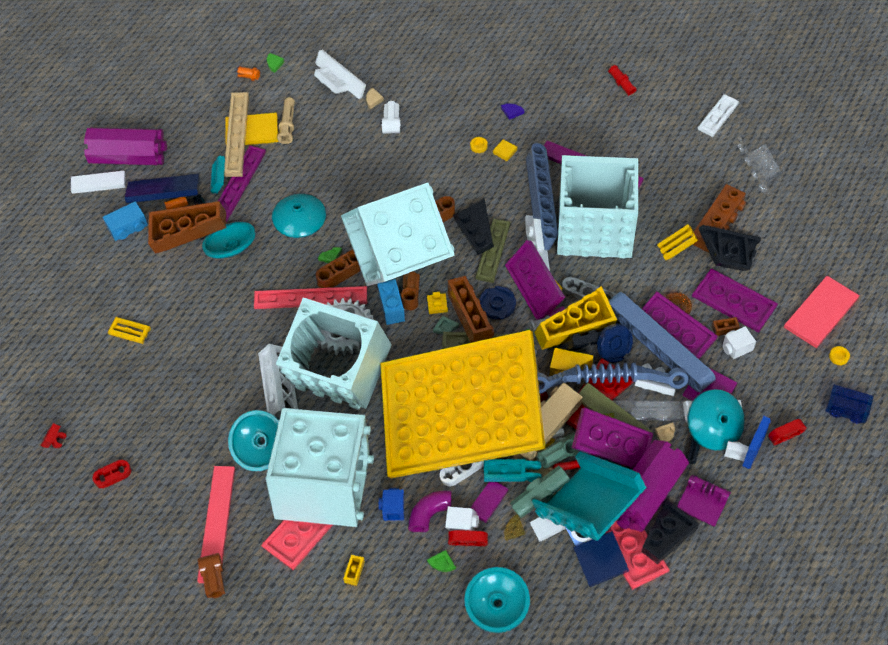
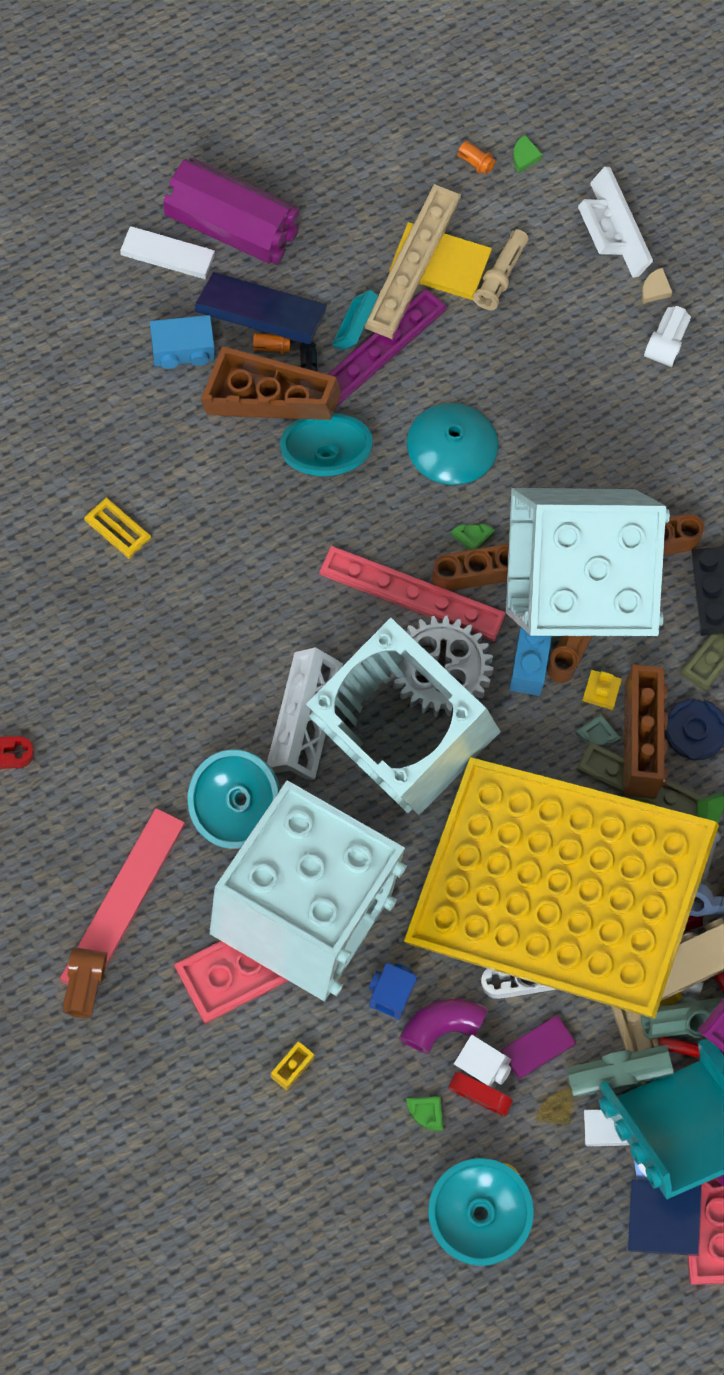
camera: 15 degrees right, 10 degrees up
(510, 470) = (592, 1019): teal hinge -> none

